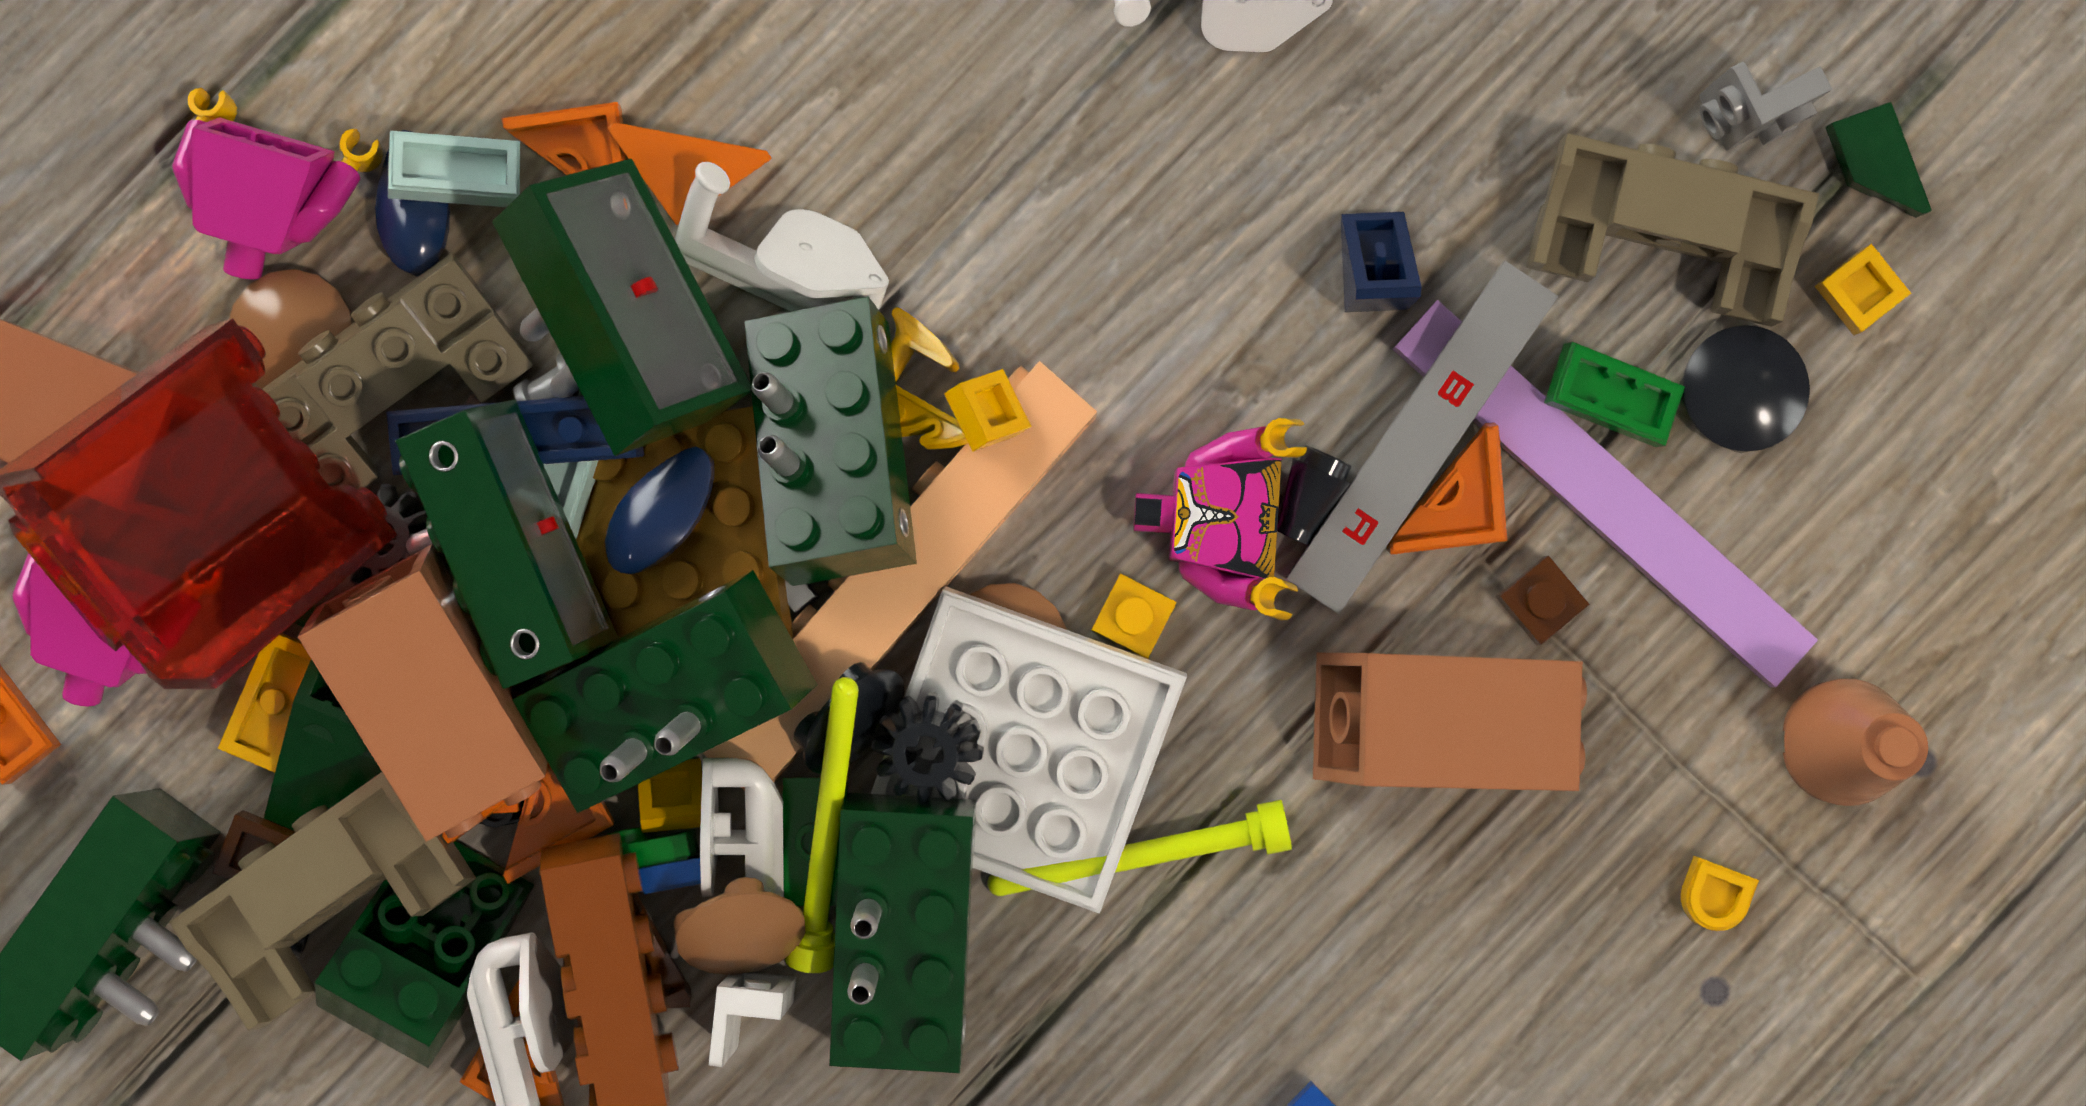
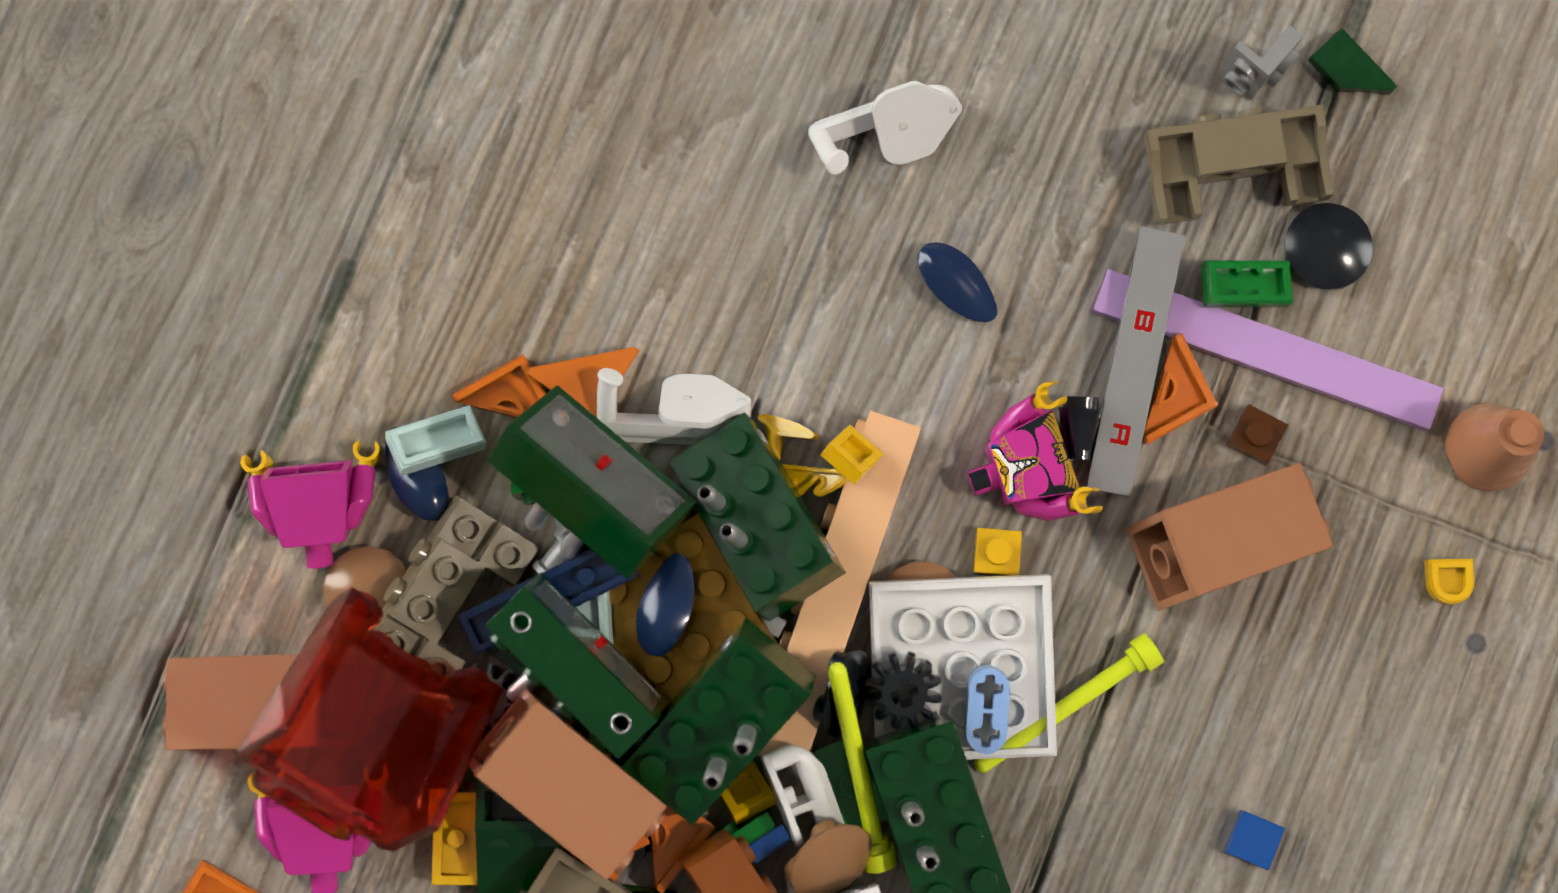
camera: 25 degrees left, 5 degrees down
(1043, 823) = (998, 709): none -> light blue beam
(1228, 236) = (956, 282): none -> dark blue arm
(1378, 263) = (1060, 260): dark blue slope -> none
(1862, 289) = (1375, 153): yellow plate -> none

